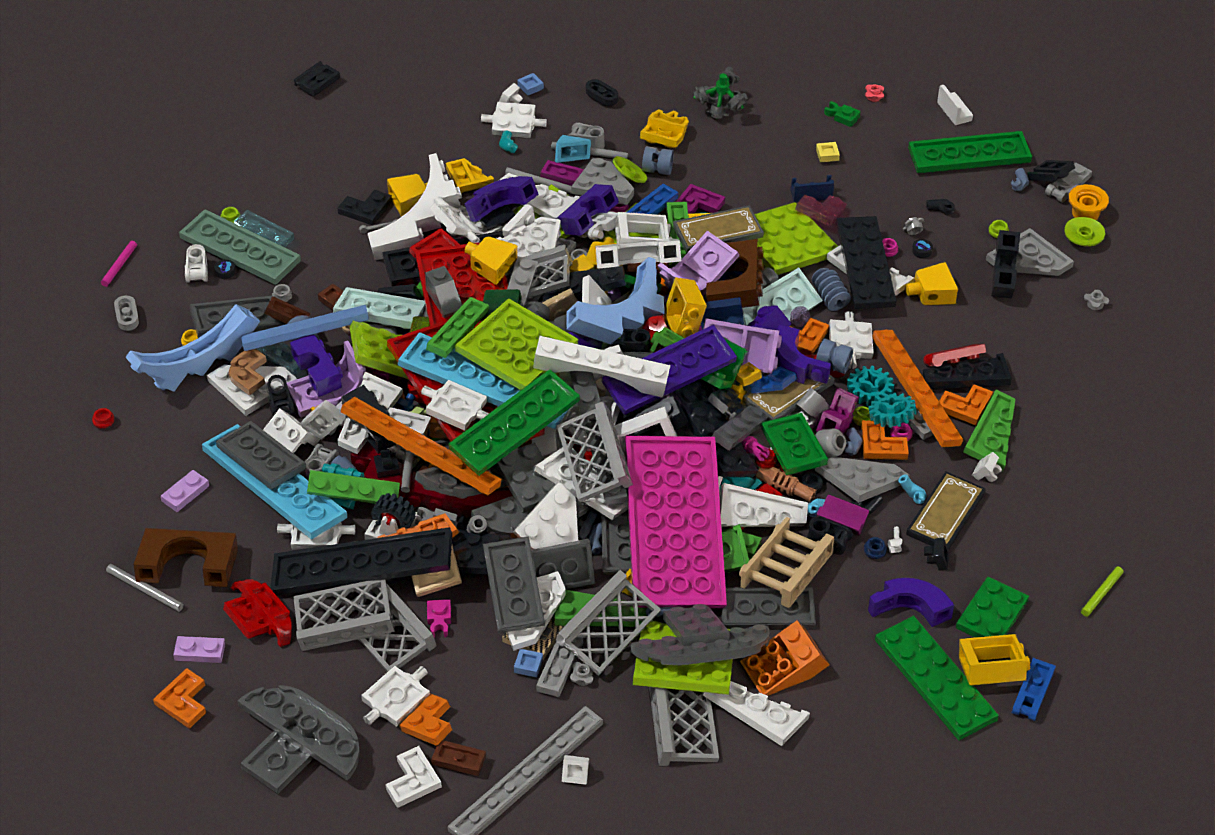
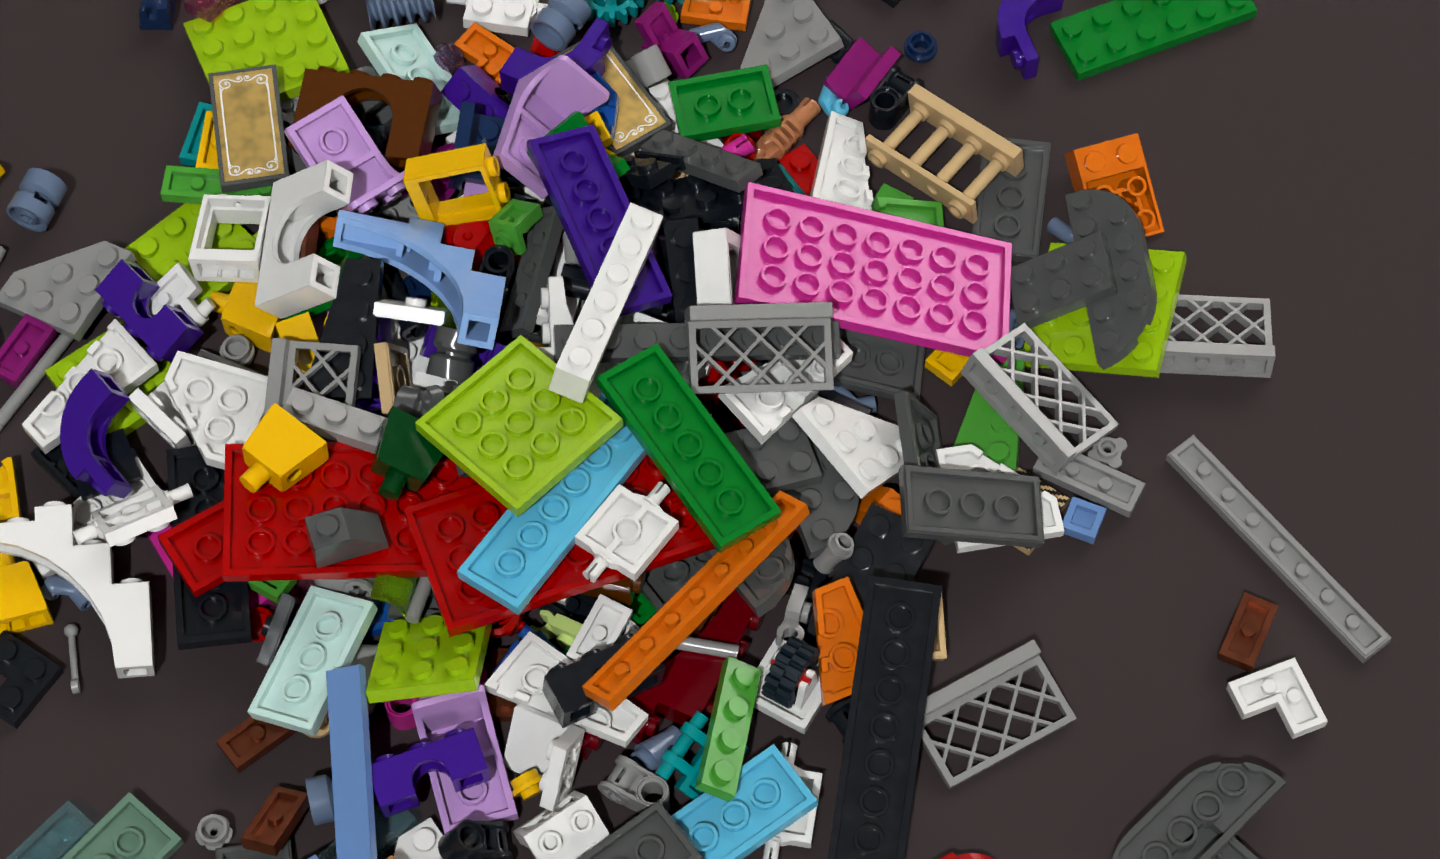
camera: 80 degrees left, 15 degrees up
(345, 628) = (1002, 767): light grey fence -> none
(386, 464) = (681, 676): black tile -> none
(395, 695) = (1127, 710): white plate -> none
(425, 720) = (1181, 676): orange plate -> none
(439, 615) = (969, 638): dark pink plate -> none
(457, 327) = (463, 507): bright green plate -> none
(575, 769) = (1282, 479): white tile -> none
(629, 170) = (46, 244): lime dish -> none
(655, 201) = (155, 219): blue plate -> none
(701, 198) = (139, 157): magenta plate -> none
(767, 717) = (1207, 225): white wing -> none
(831, 441) = (720, 57): light grey head -> none
(894, 545) = (915, 19): white hand -> none

